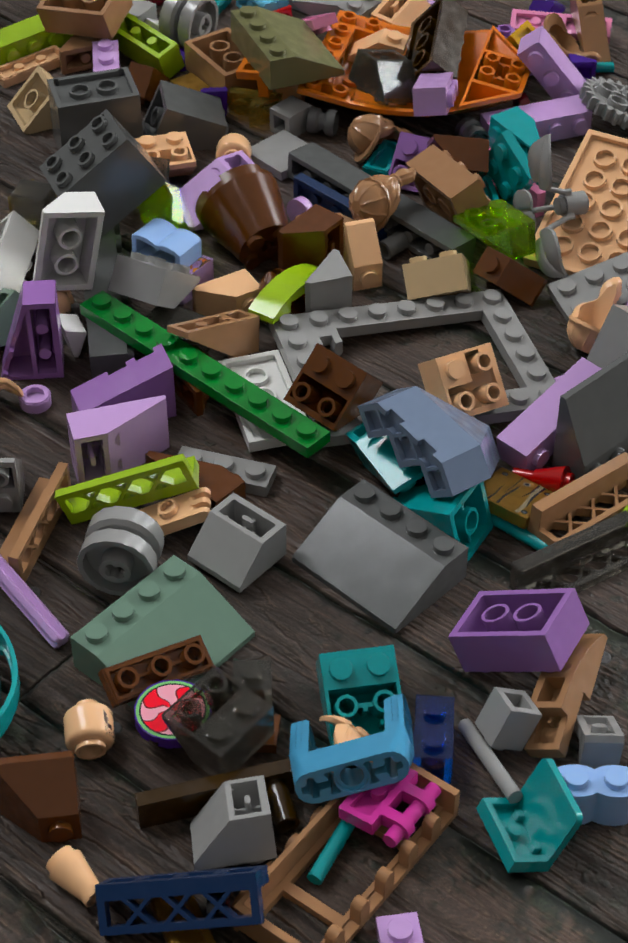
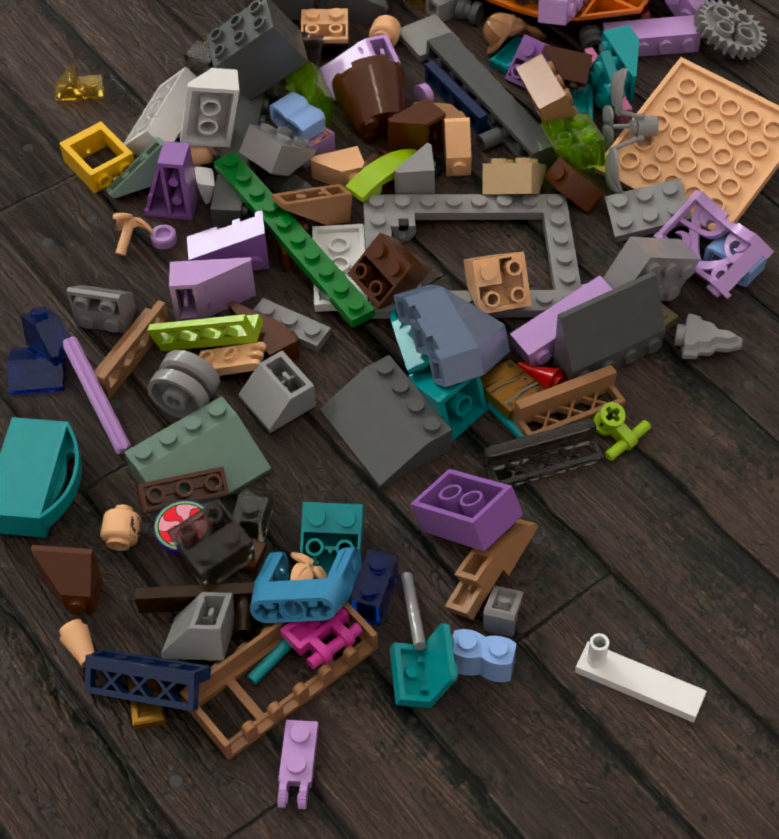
camera: 15 degrees right, 10 degrees up
(379, 196) = (482, 96): medium nougat piece -> none
(508, 719) = (436, 580): light grey brick -> none
(590, 316) = (634, 228): light nougat piece -> none

